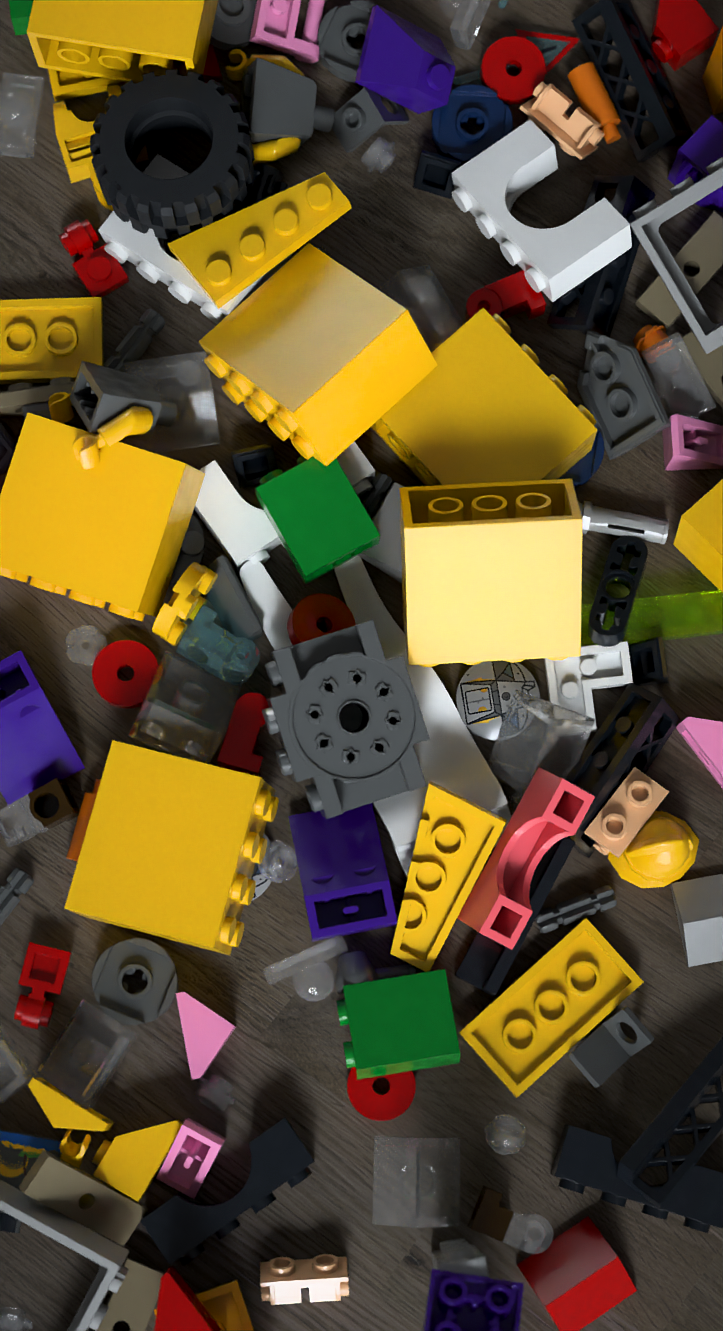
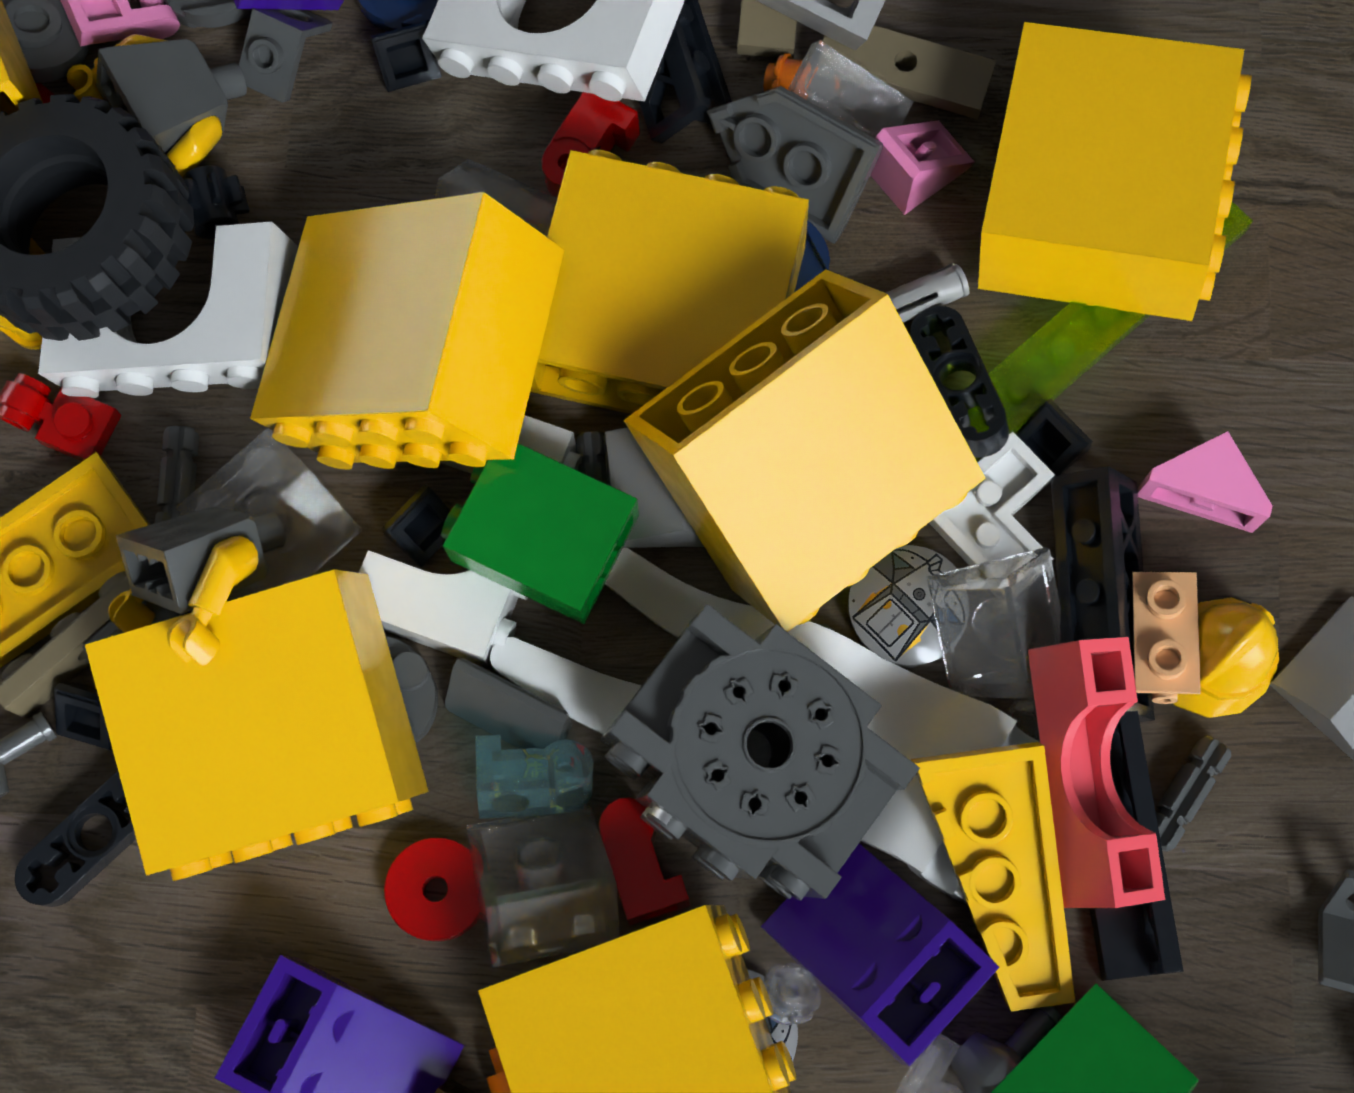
camera: 25 degrees left, 5 degrees down
(77, 637) = (344, 885): clear plate -> none
(184, 603) = (449, 750): yellow plate -> none
(254, 240) = (236, 256): yellow wing -> none
(318, 609) = (623, 643): red piece -> none
(379, 155) = (324, 79): clear plate -> none
(551, 1007) = (1250, 938): yellow plate -> none

